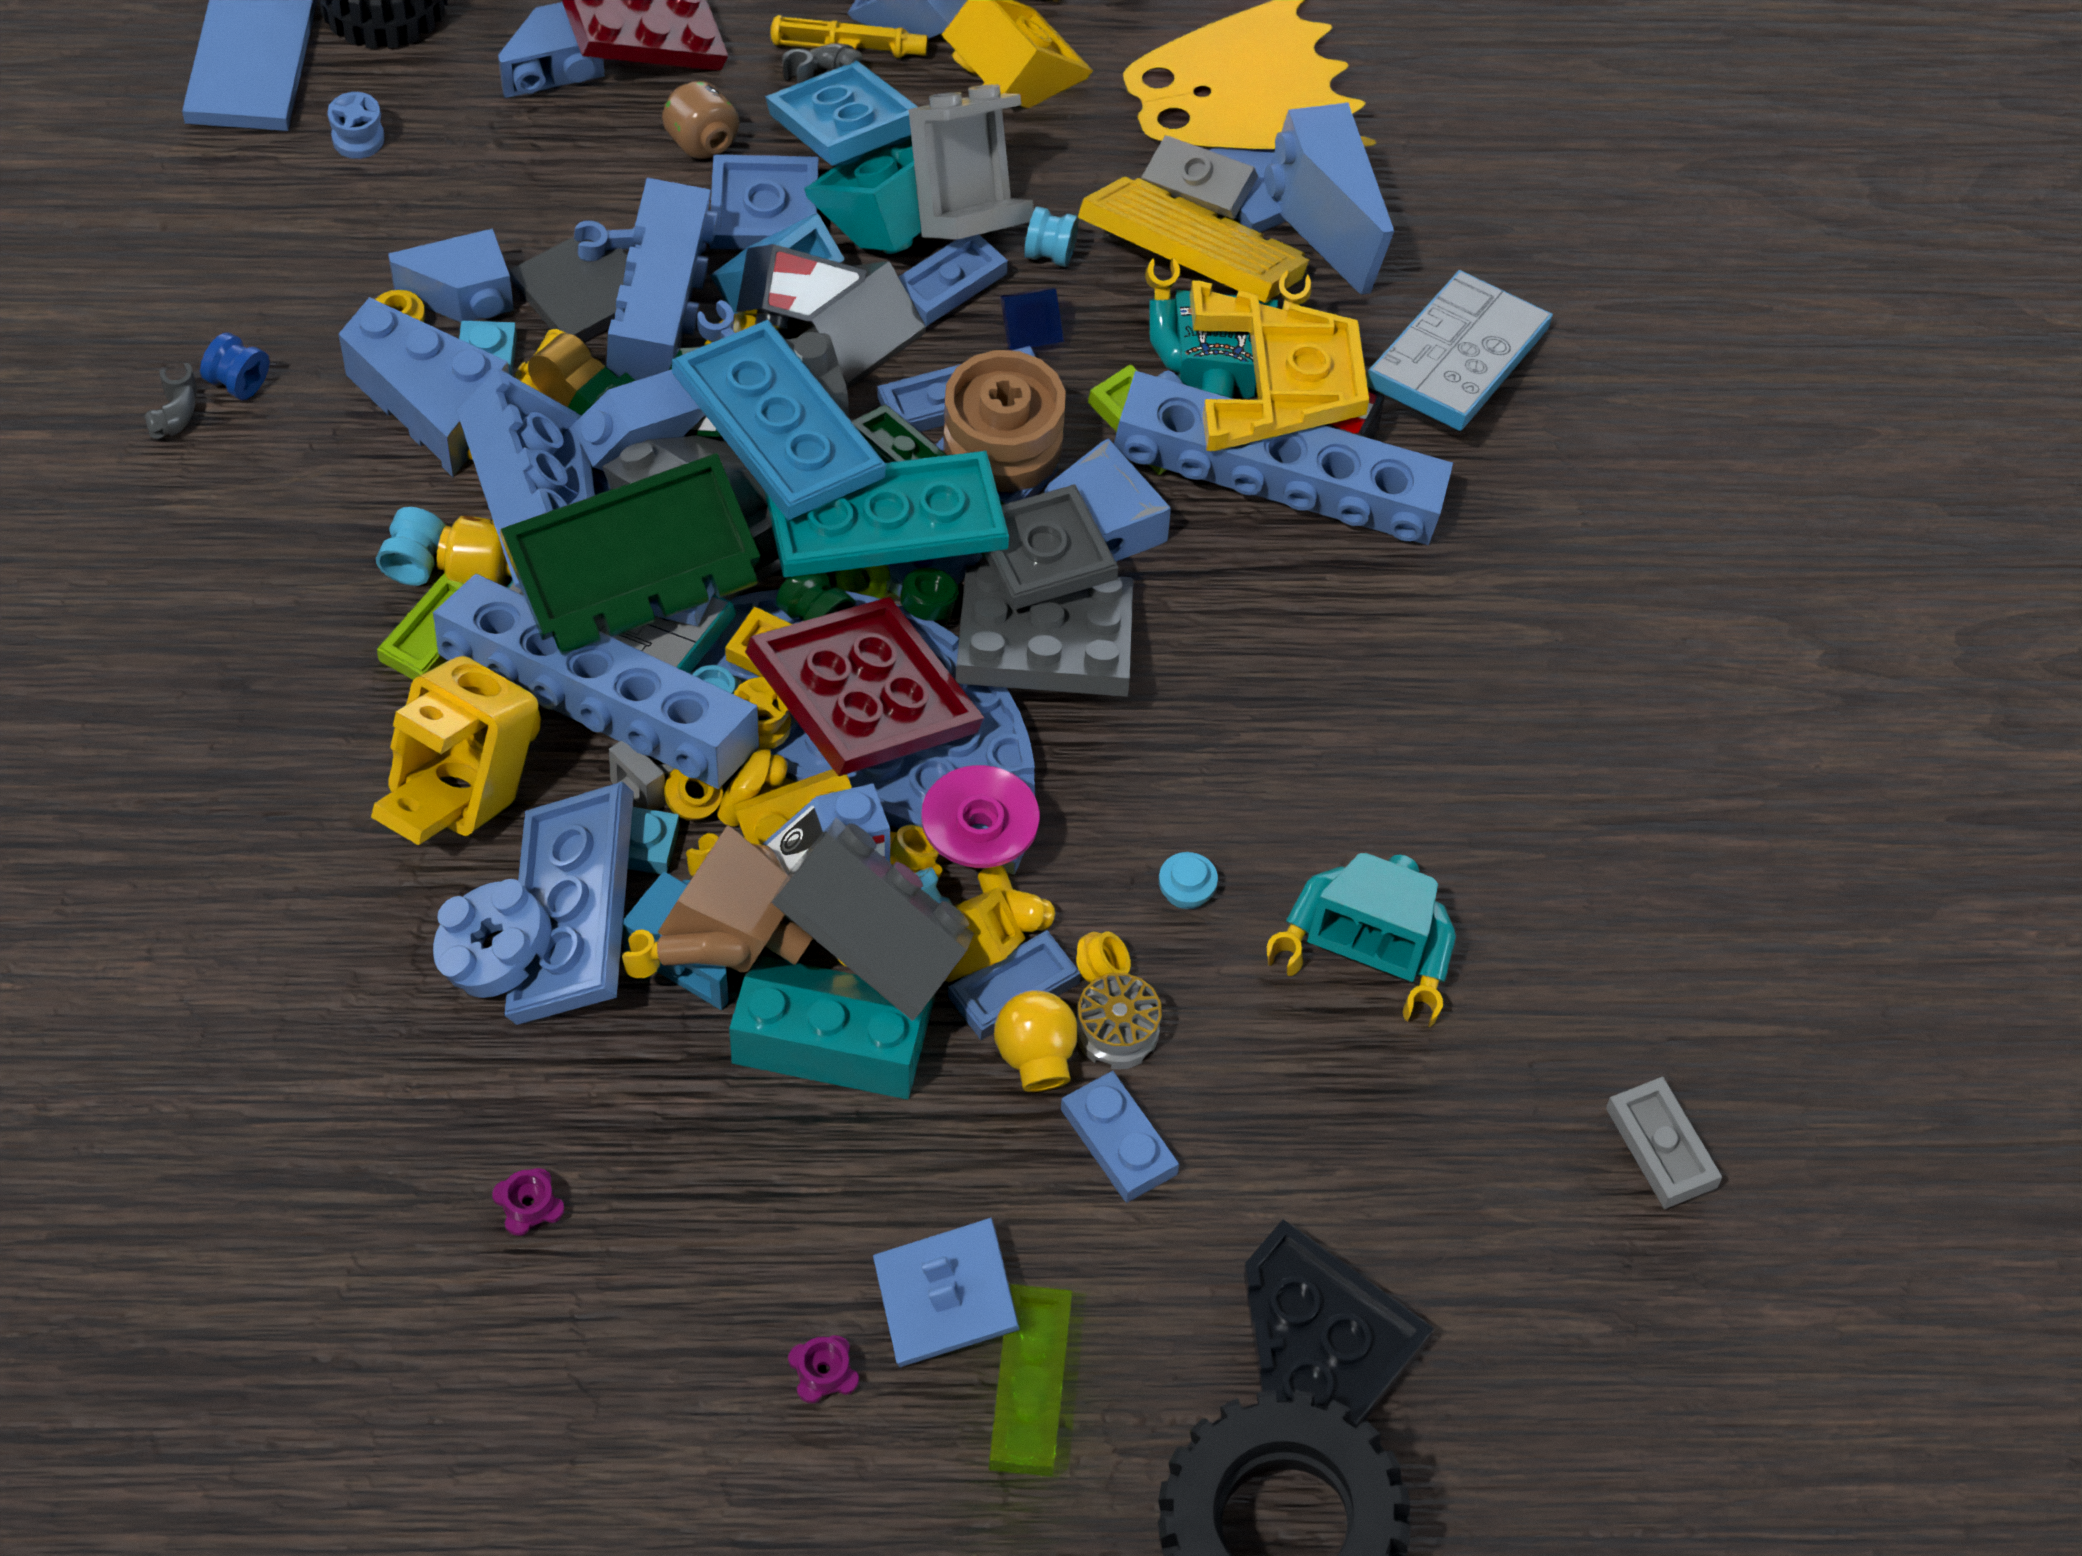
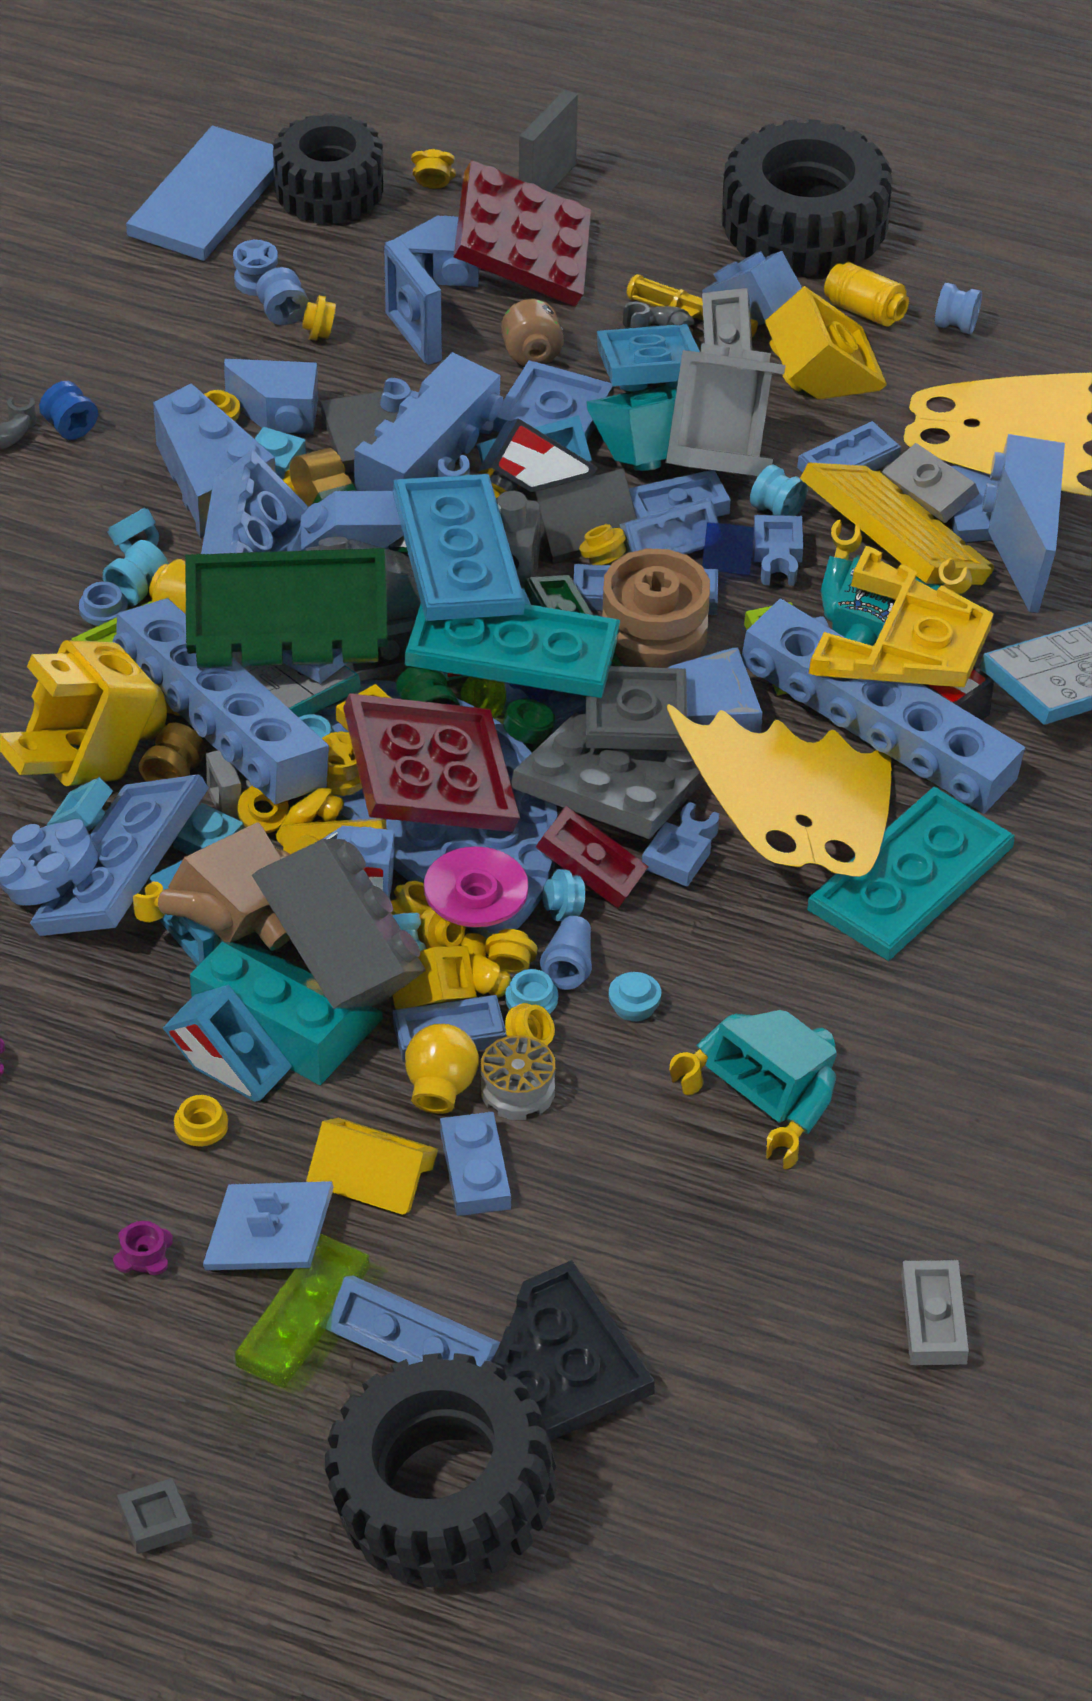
camera: 25 degrees right, 10 degrees down
(378, 491) = (133, 525): none -> medium azure tile
(387, 584) = (102, 603): none -> medium blue plate
(404, 153) = (282, 296): none -> medium blue wheel
(458, 168) = (319, 318): none -> yellow plate
(493, 854) = (84, 804): none -> medium azure plate
(561, 121) = (413, 301): none -> medium blue tile
(564, 756) = (174, 753): none -> pearl gold wheel
(795, 1089) = (227, 1043): none -> dark azure slope
(809, 1177) = (200, 1121): none -> yellow plate
(900, 354) = (603, 544): none -> yellow plate
(908, 56) = (728, 320): none -> light grey plate
(955, 880) = (439, 932): none -> yellow plate
(961, 319) = (674, 529): none -> medium blue plate
(1015, 1178) = (370, 1164): none -> yellow panel
(1039, 872) = (511, 950): none -> yellow plate
(1062, 788) = (564, 895): none -> medium azure plate
(1072, 734) = (592, 855): none -> dark red plate
(1081, 298) = (778, 545): none -> medium blue plate
(1081, 913) = (533, 988): none -> medium azure plate
(1100, 858) = (569, 953): none -> medium blue cone
(1102, 161) = (862, 446): none -> medium blue plate
(1153, 689) = (681, 850): none -> medium blue plate
(1159, 1367) = (401, 1327): none -> medium blue plate
(1234, 576) = (776, 776): none -> yellow piece
(1392, 640) = (919, 872): none -> teal tile

